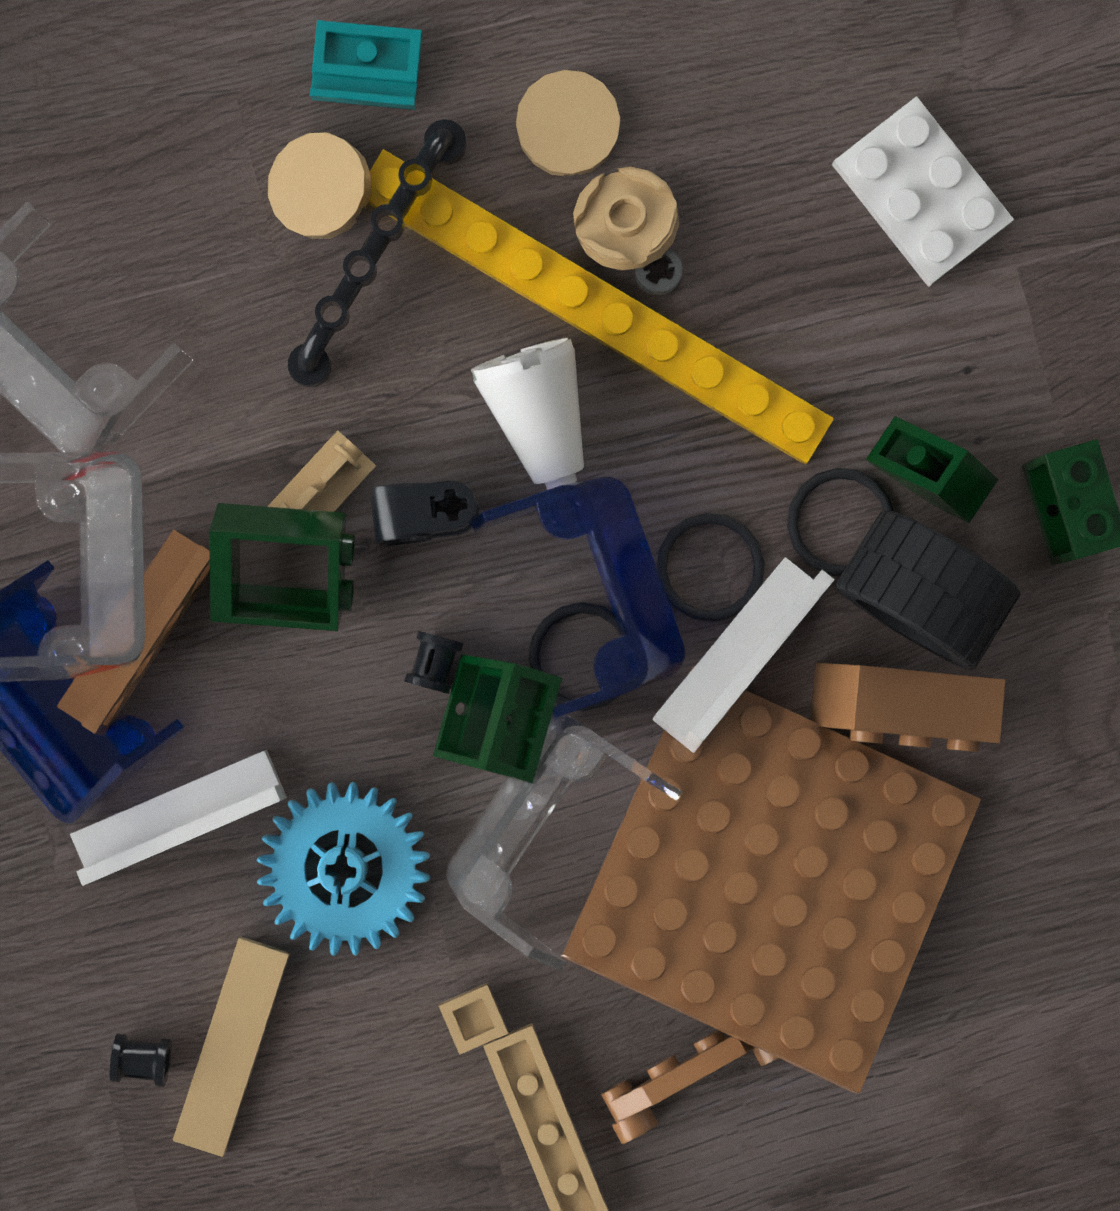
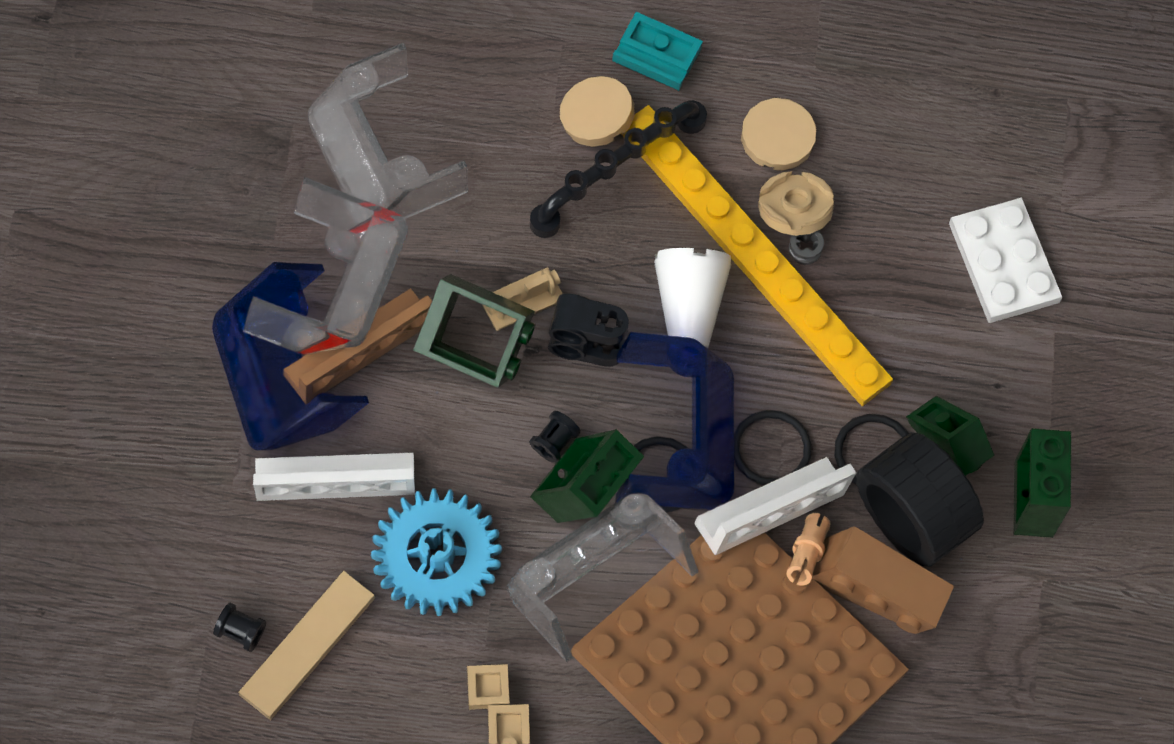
camera: 10 degrees right, 20 degrees down
(806, 695) = (808, 549): none -> light nougat pin

